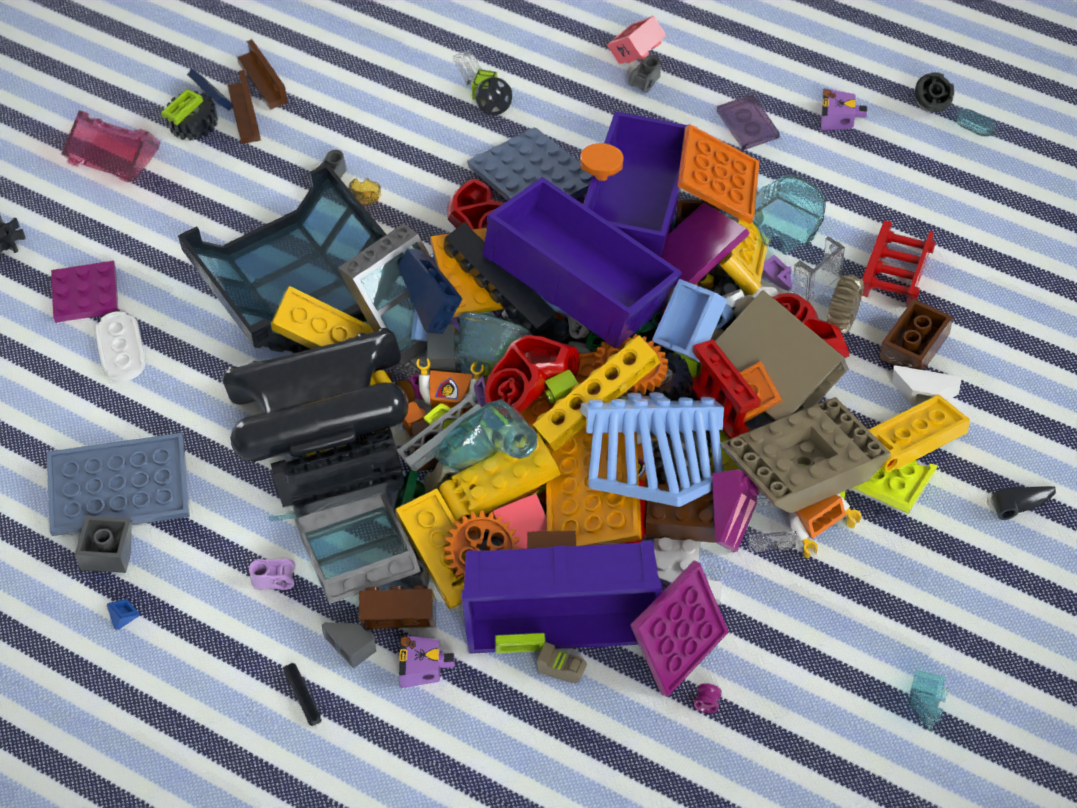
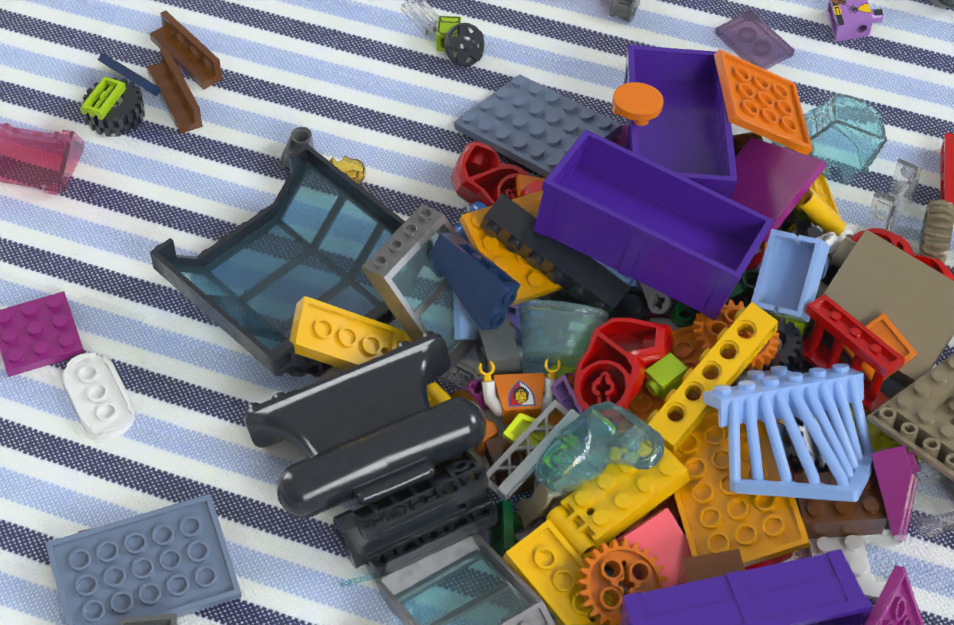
camera: 15 degrees left, 0 degrees up
(778, 272) = (848, 208): medium lavender slope -> none

